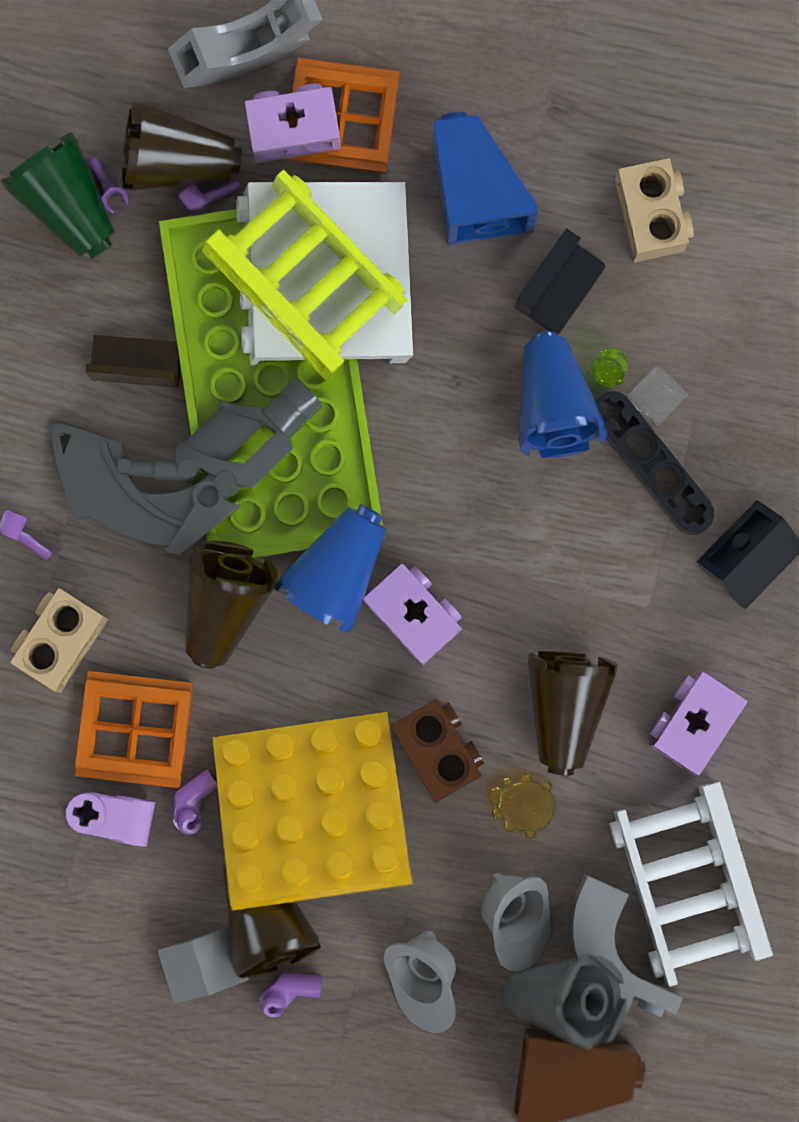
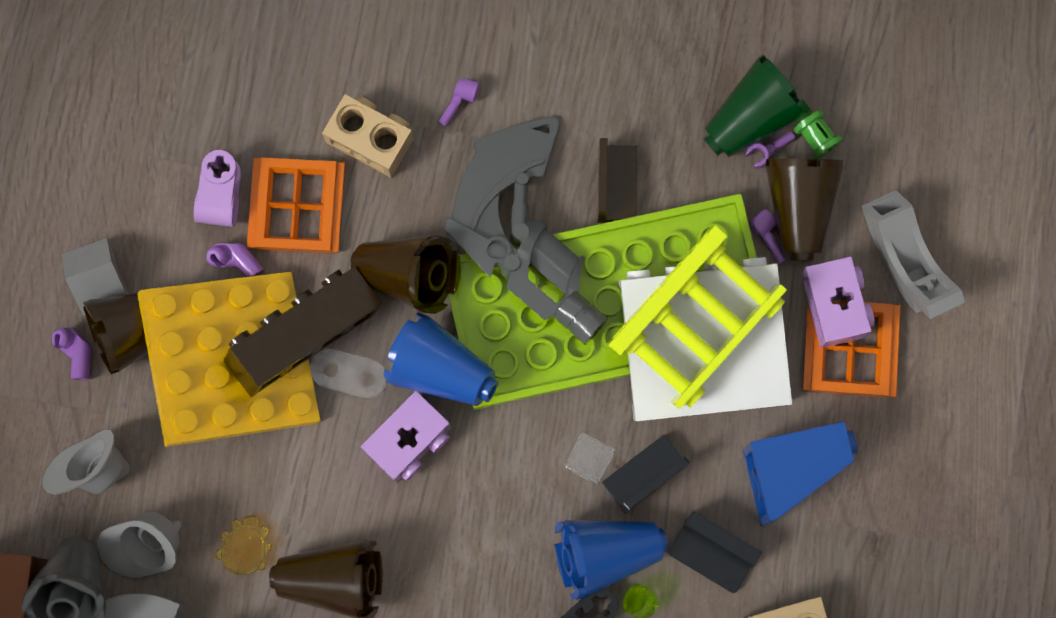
camera: 85 degrees right, 5 degrees down
(96, 129) = (818, 134): none -> bright green bush
(288, 724) = (301, 331): none -> dark brown brick
(335, 676) = (350, 373): none -> clear plate
(427, 755) = (282, 456): reddish brown brick -> none
(447, 412) = (589, 458): none -> clear tile
(470, 351) = (645, 474): none -> black panel

